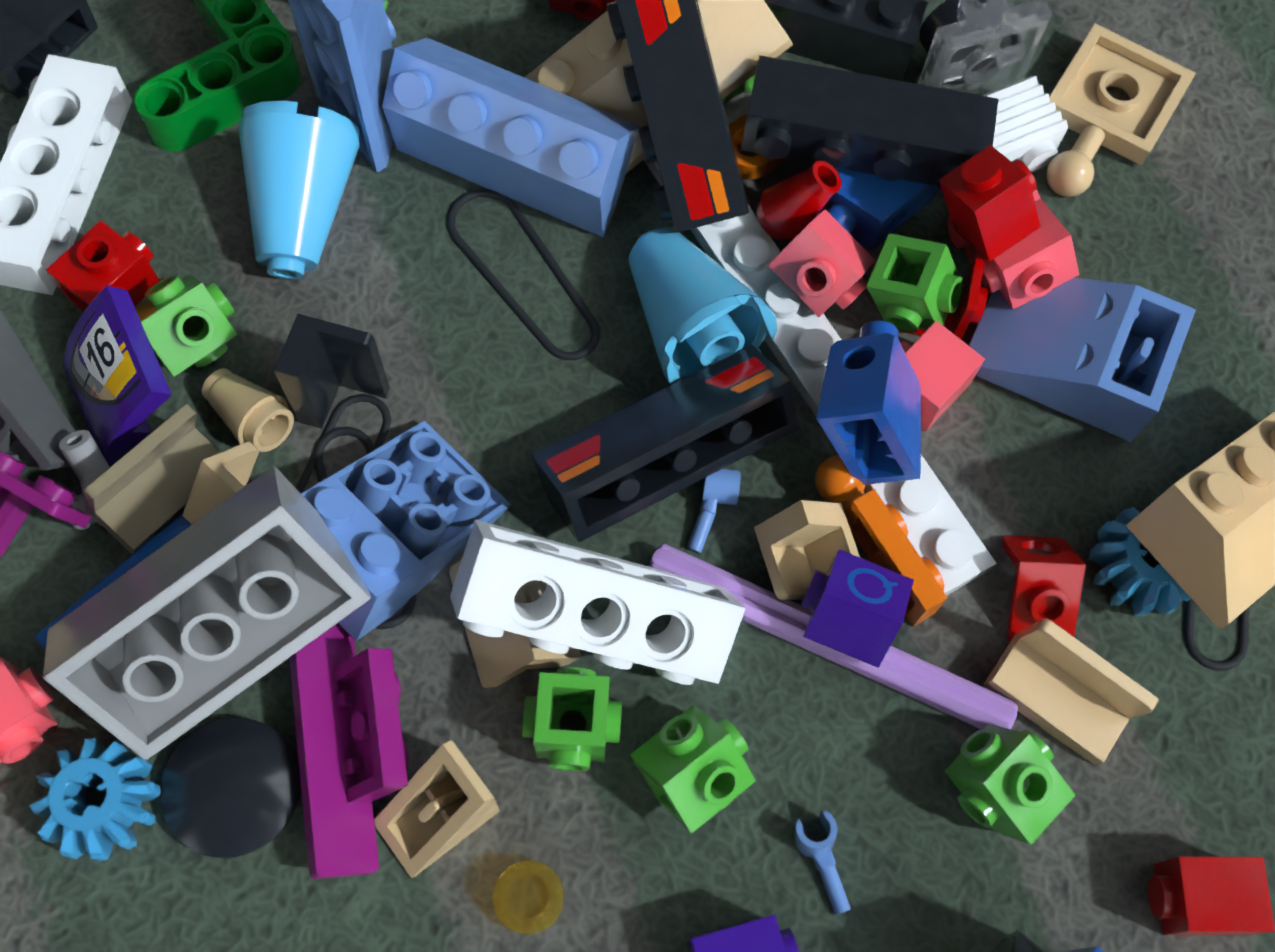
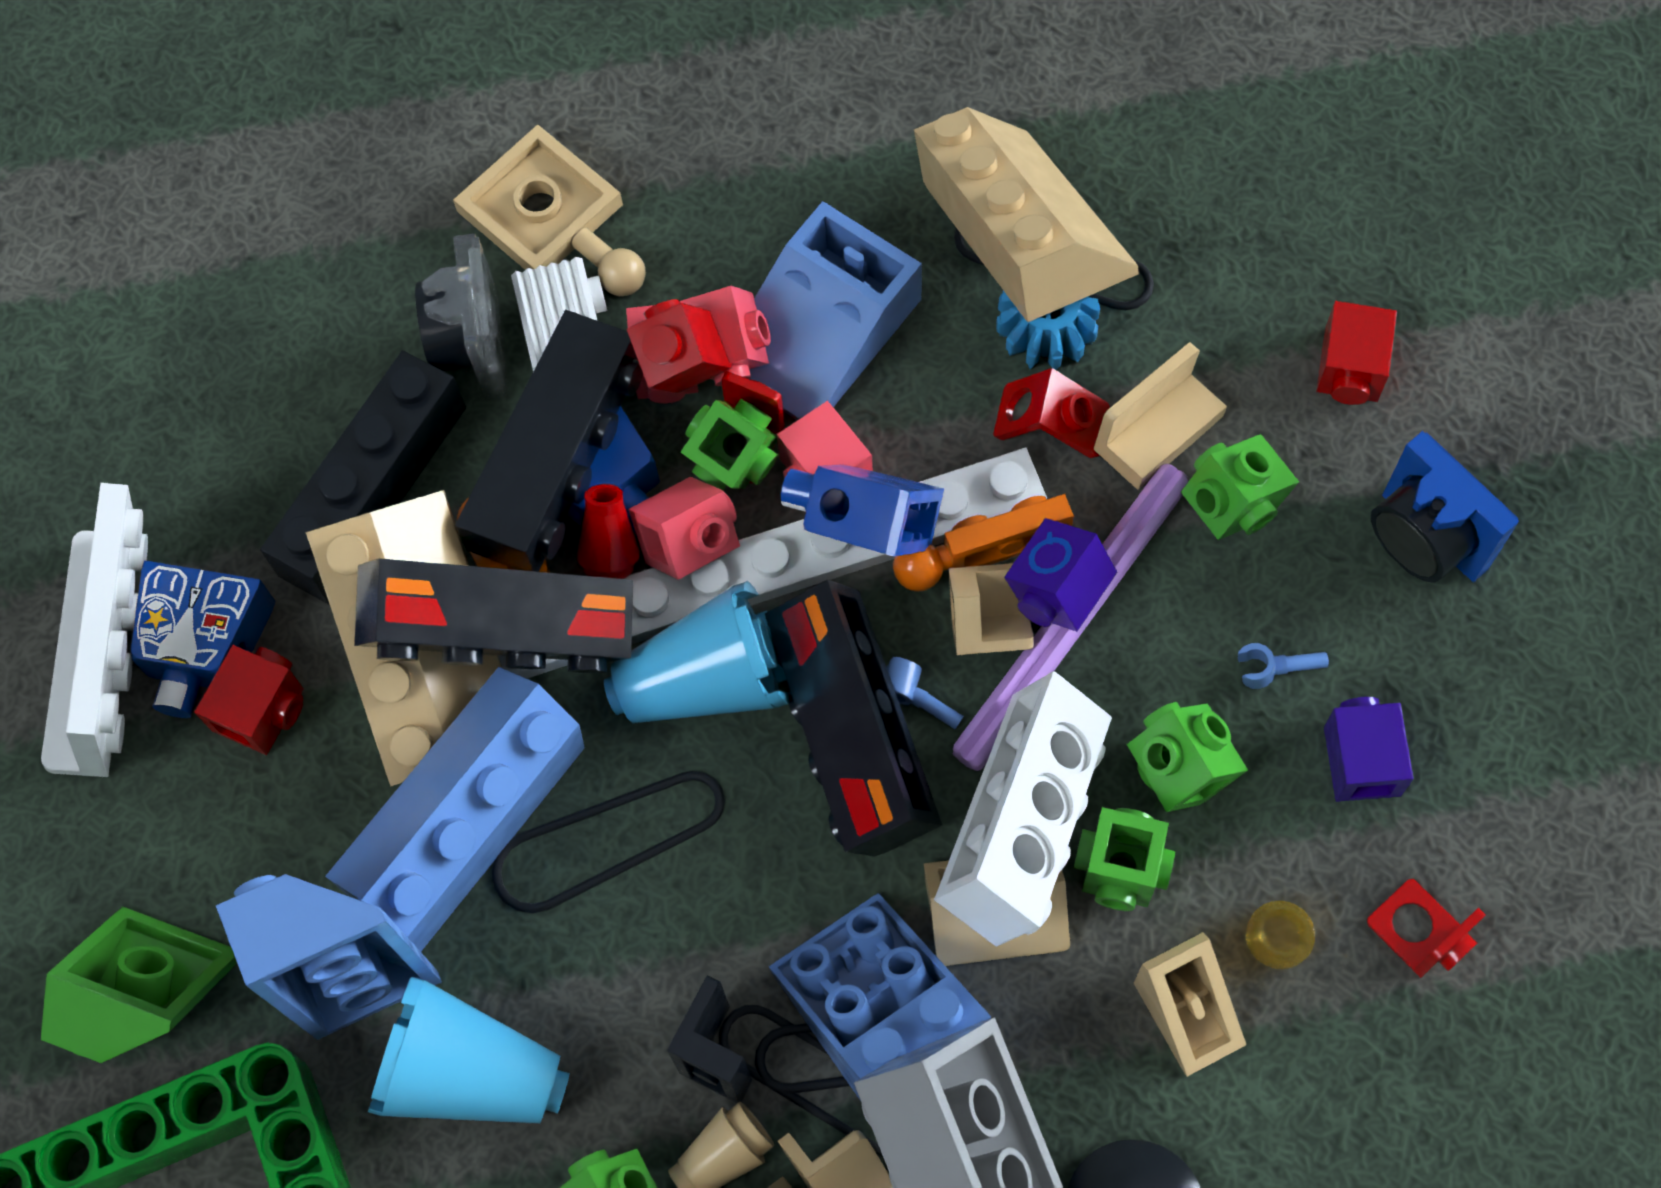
camera: 70 degrees left, 0 degrees up
(346, 749) = (1122, 1080): magenta bracket -> none

